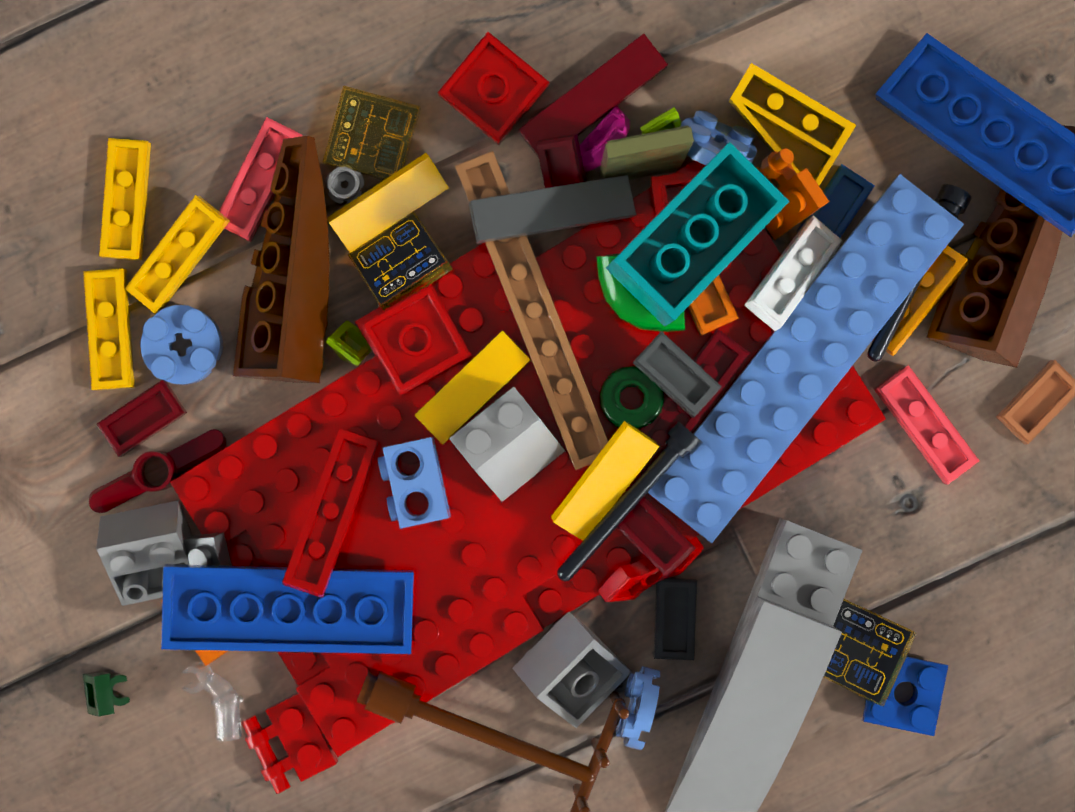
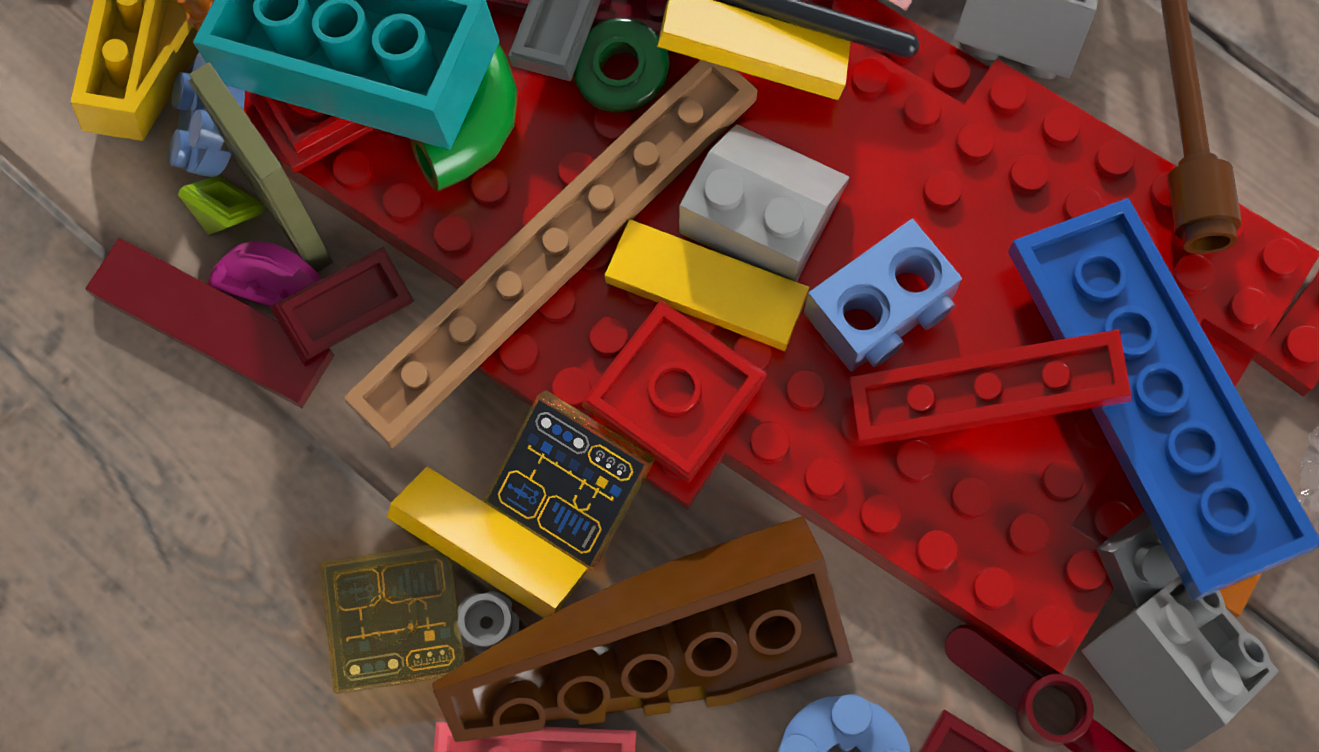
camera: 115 degrees left, 15 degrees down
(349, 344) = (723, 503): lime slope -> none
(493, 88) = (249, 465): red plate -> none
(551, 209) = (397, 278): dark grey tile -> none

